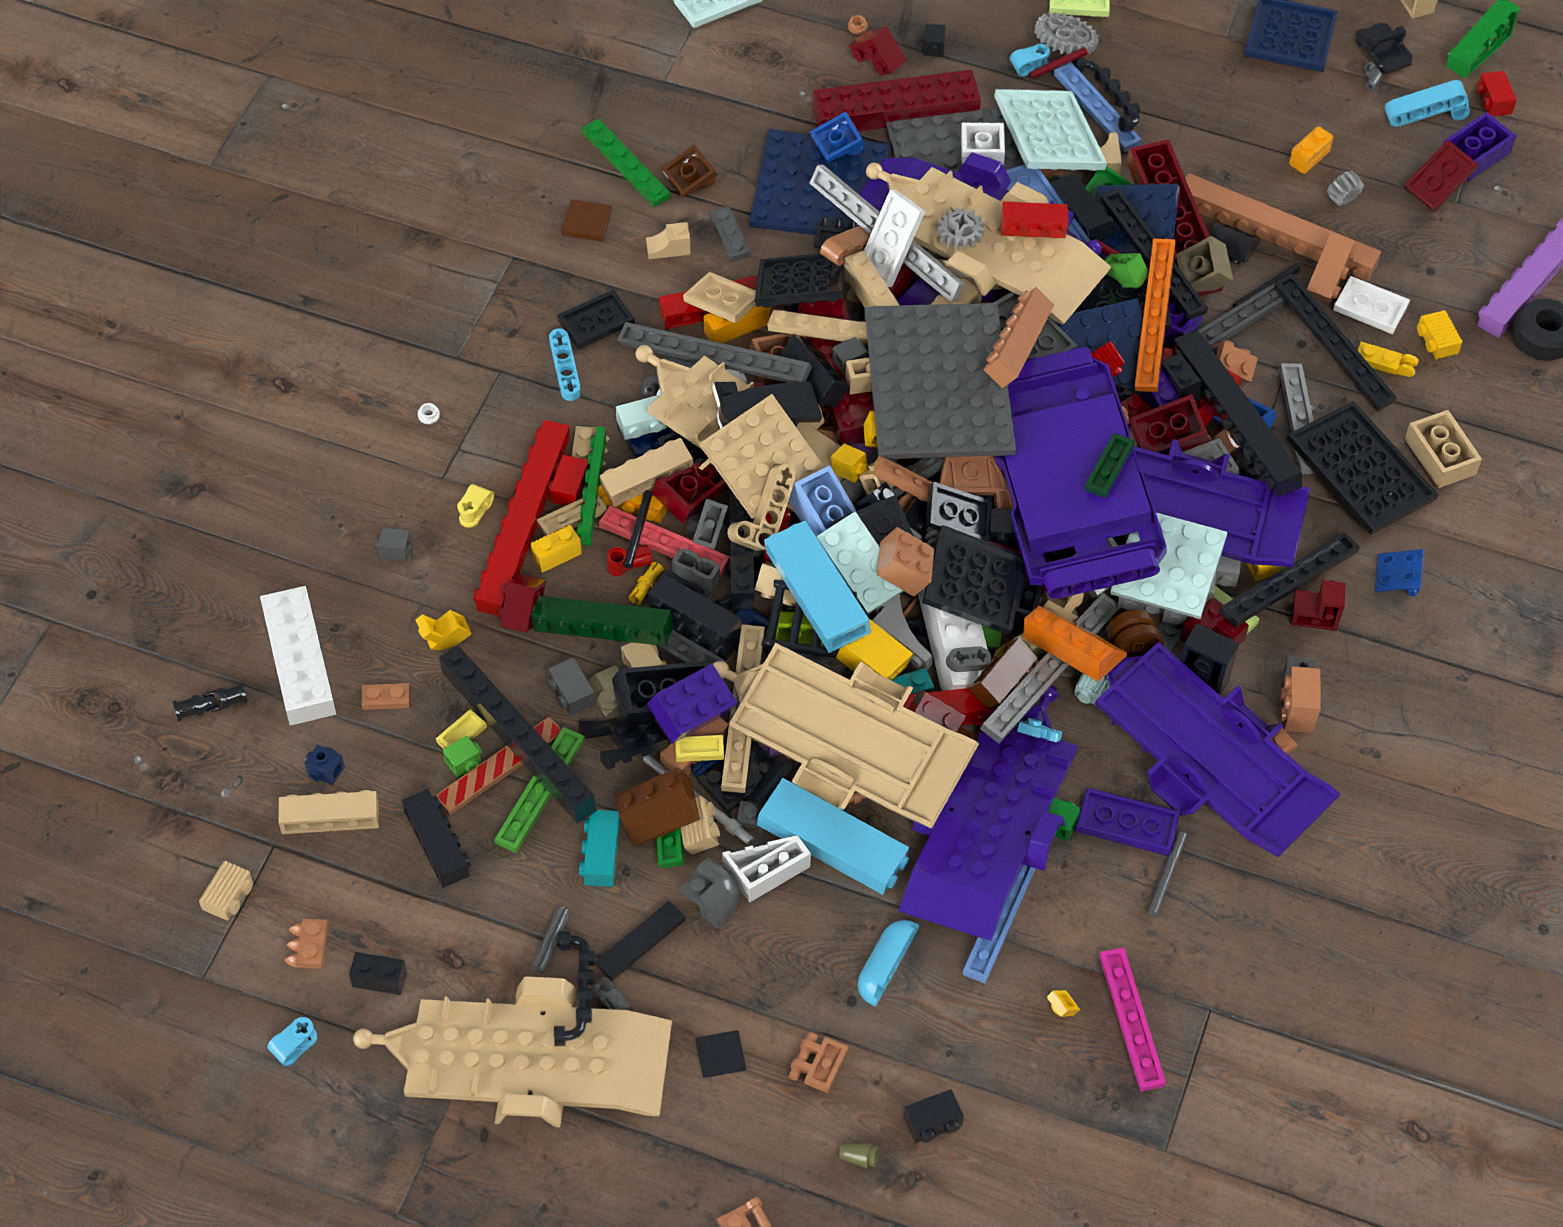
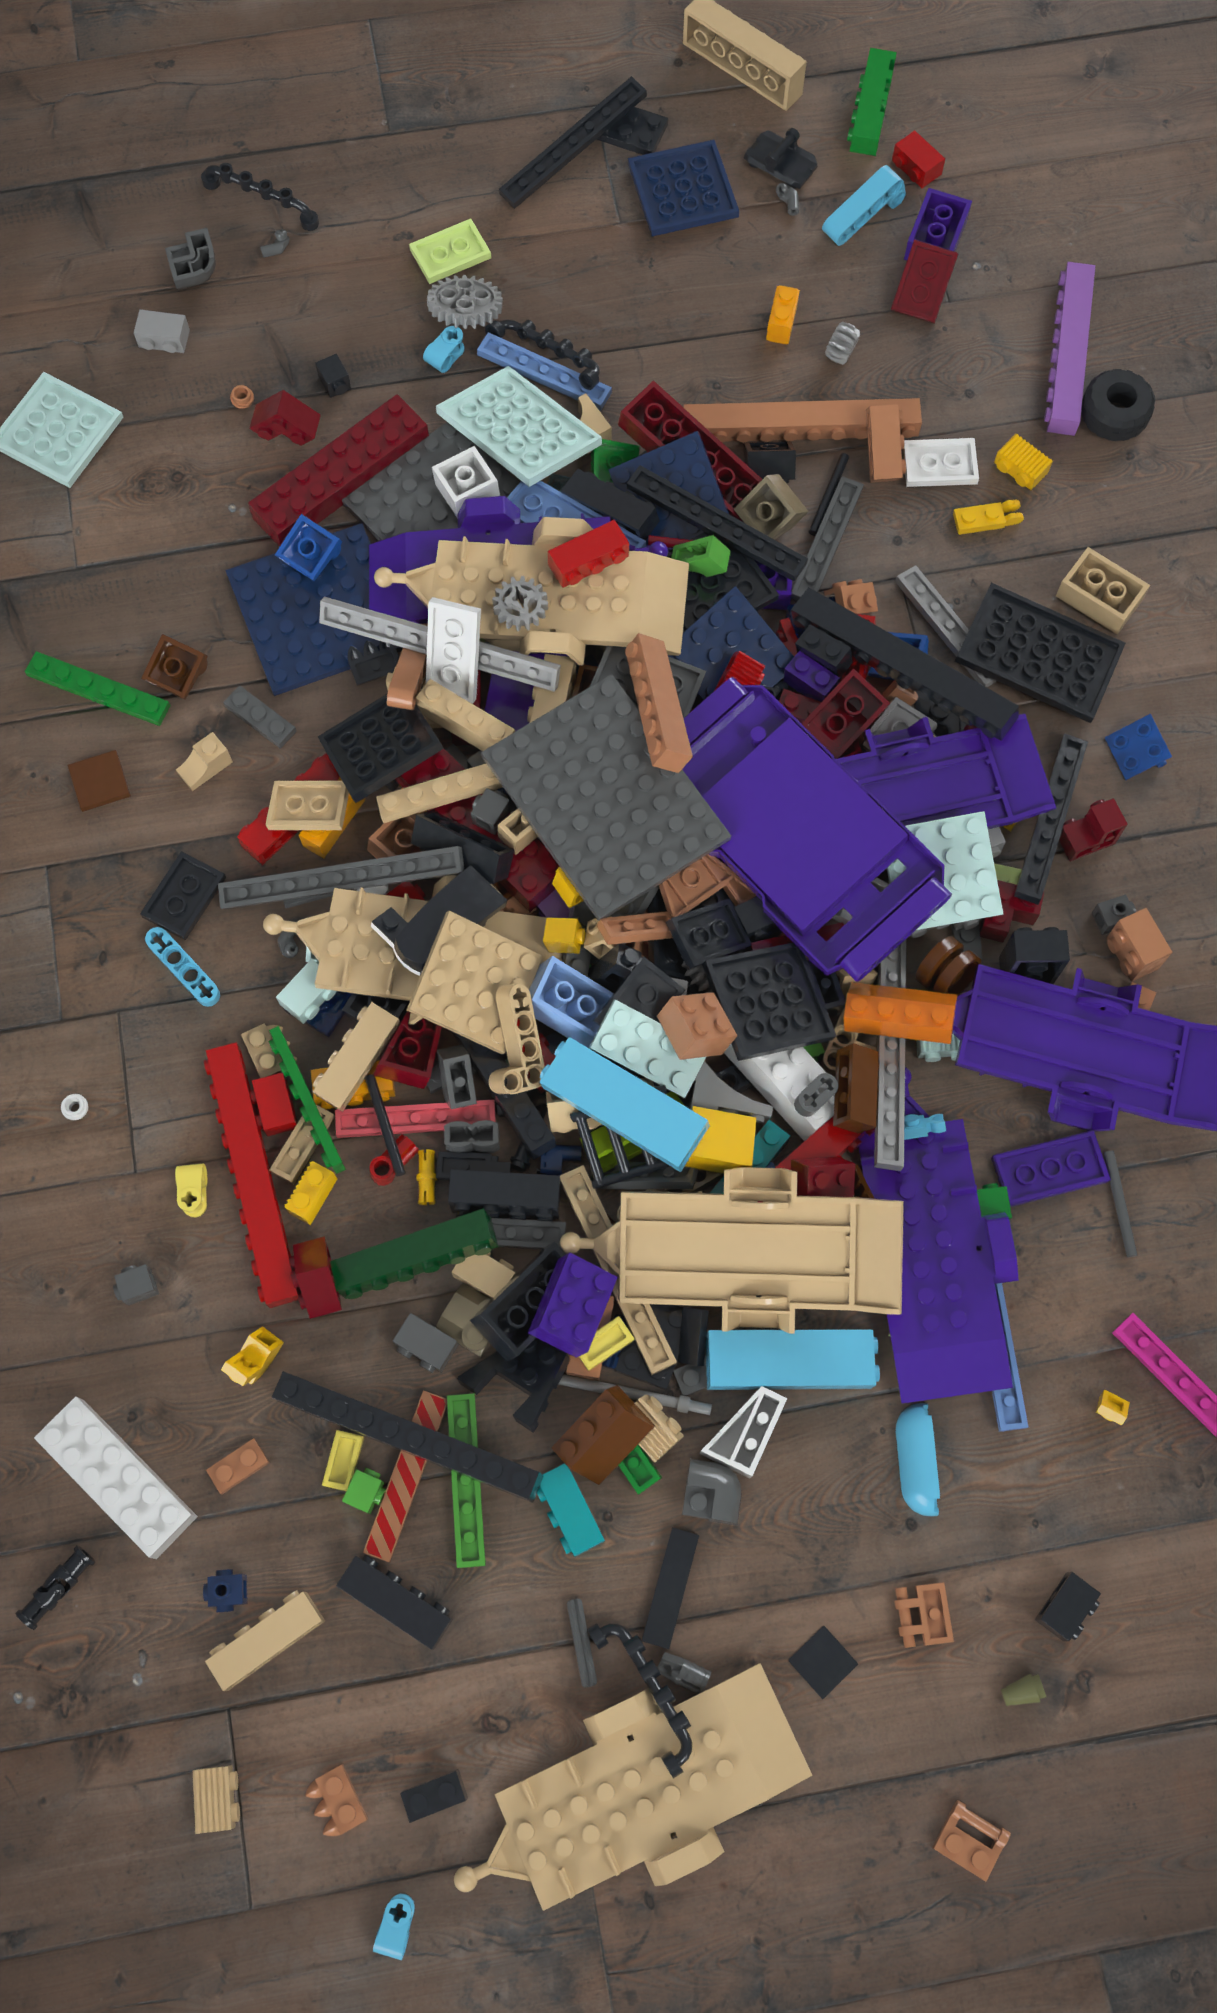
camera: 30 degrees left, 15 degrees up
(1058, 63) = (477, 339): dark red bar -> none
(1109, 465) = (838, 805): dark green plate -> none
(1155, 315) = (763, 595): orange plate -> none
(1335, 342) = (933, 523): black plate -> none

